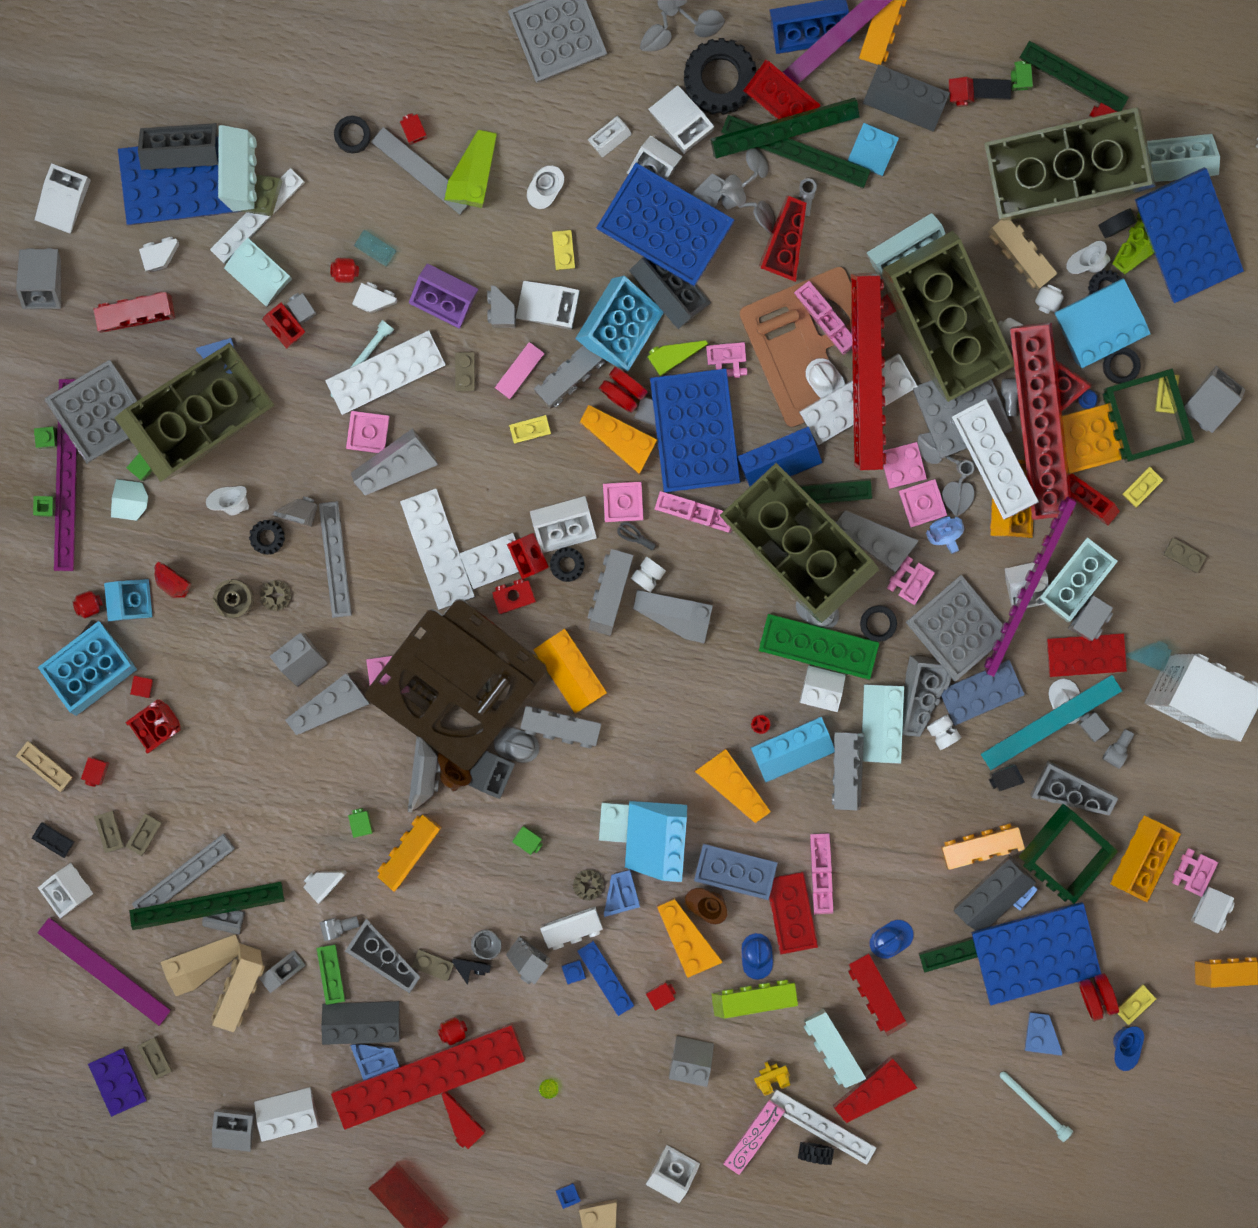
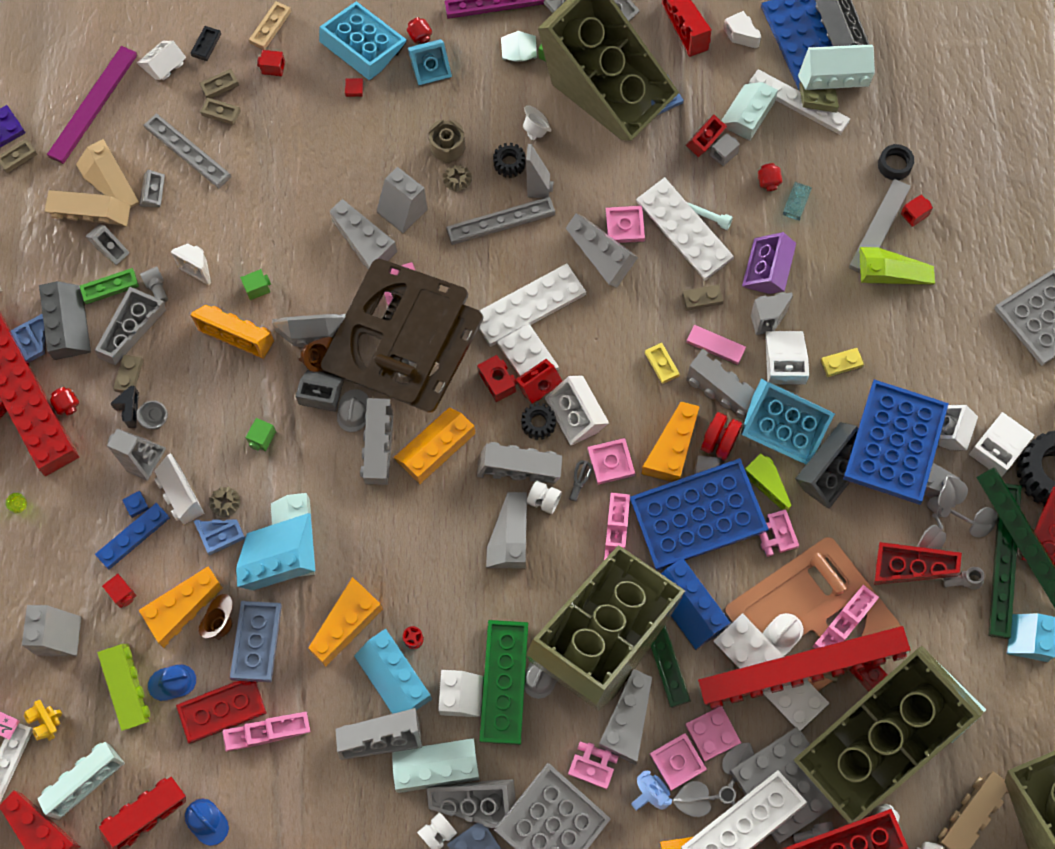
camera: 80 degrees right, 20 degrees down
(154, 725) = (321, 101): red slope -> none
(170, 582) = (455, 84): red slope -> none
(206, 905) = (161, 171): dark green plate -> none
(373, 300) = (749, 204): white slope -> none
(545, 186) = (898, 329): white piece -> none
(609, 136) = (963, 383): white slope -> none
(882, 609) = (540, 723): black tyre -> none

